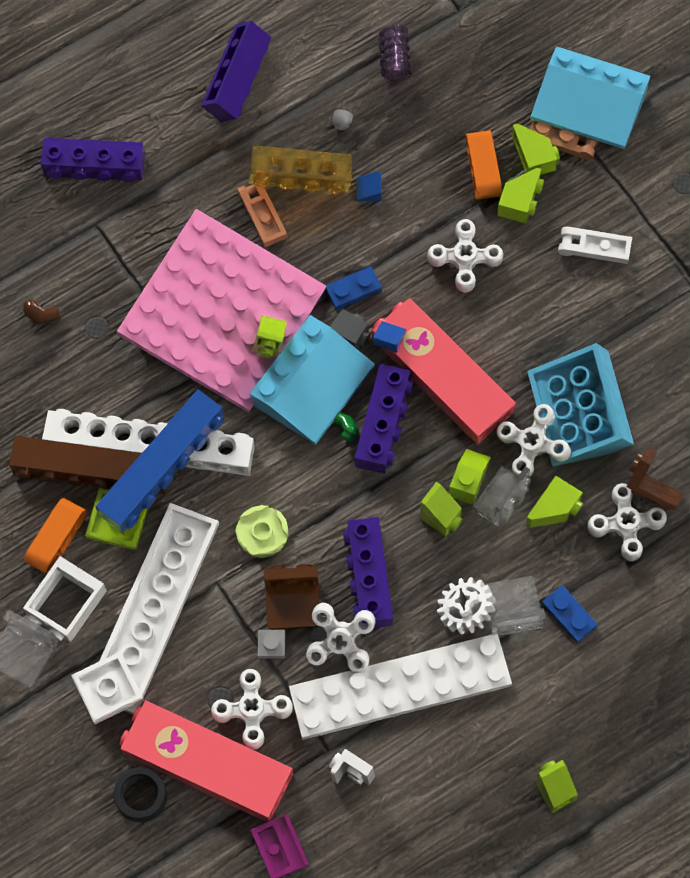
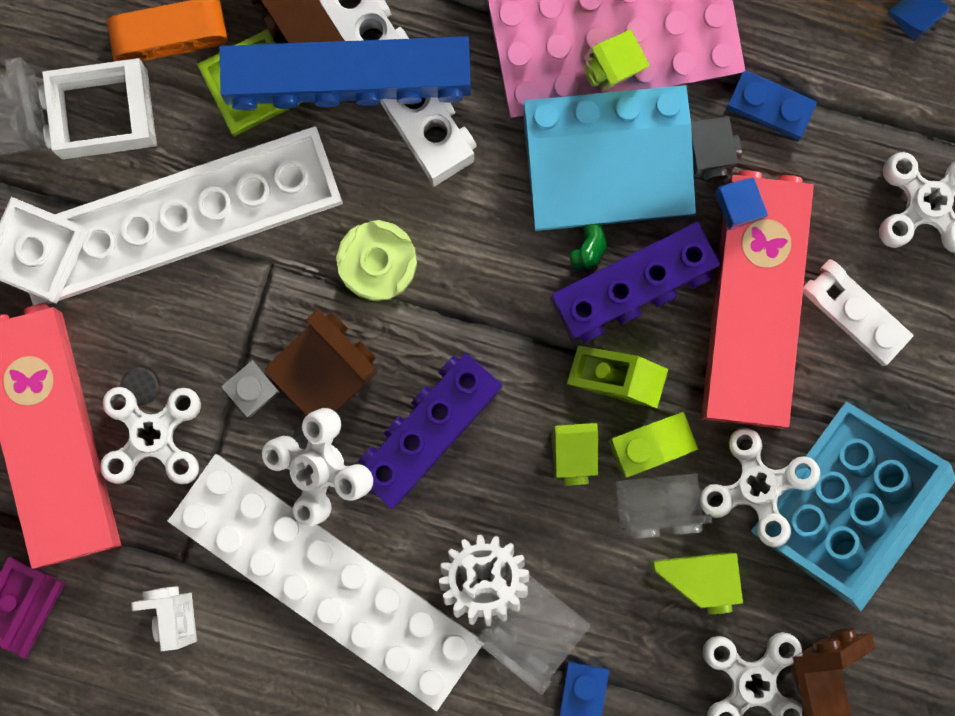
camera: 45 degrees right, 15 degrees up
(421, 463) = (618, 376): none -> lime slope
(489, 331) = (858, 313): none -> white plate

